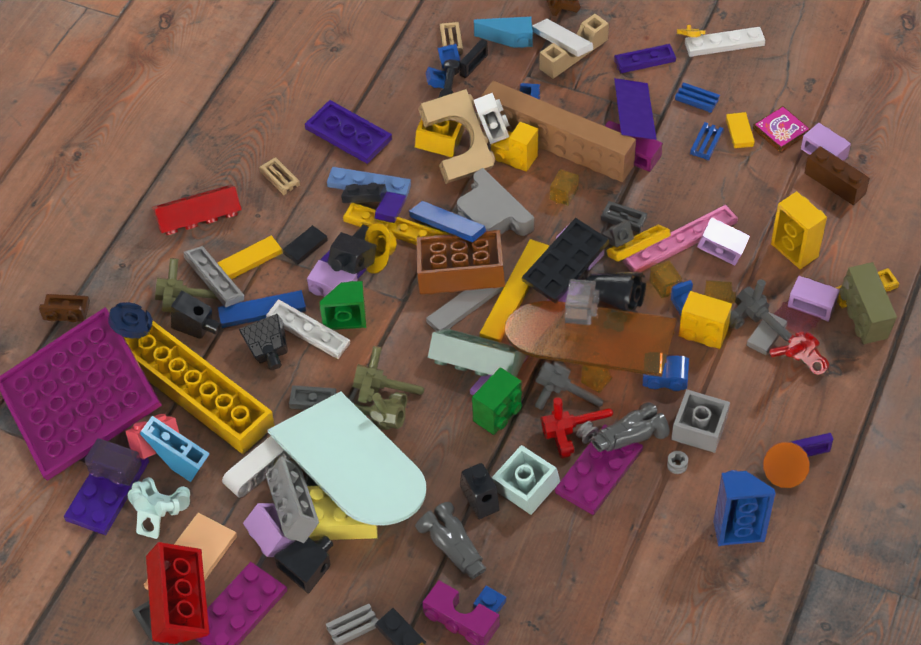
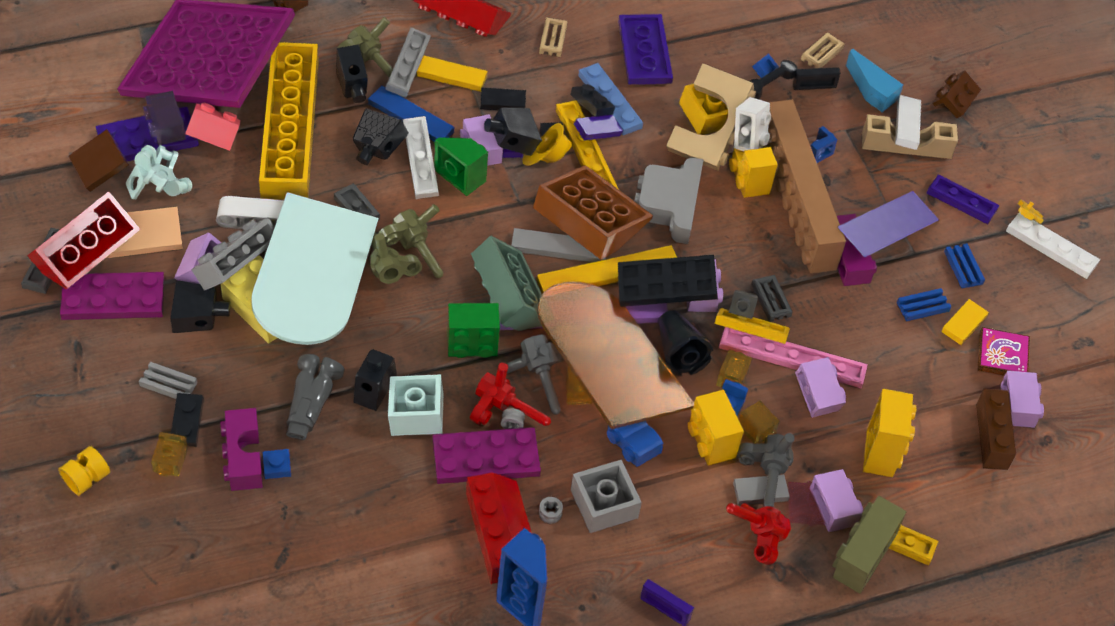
camera: 40 degrees right, 0 degrees up
(102, 535) = (98, 160): none -> reddish brown tile
(130, 320) = (296, 32): dark blue tile -> none
(175, 449) = (211, 145): dark azure slope -> none
(447, 221) = (623, 174): tile -> none
(448, 52) = (801, 58): blue plate -> none
(564, 187) = (751, 232): clear yellow brick -> none
(581, 302) = (634, 320): clear brick -> none
(632, 428) = (544, 448): dark grey piece -> none
(667, 502) = (496, 515): none -> red slope
(786, 464) = (626, 595): orange tile -> none

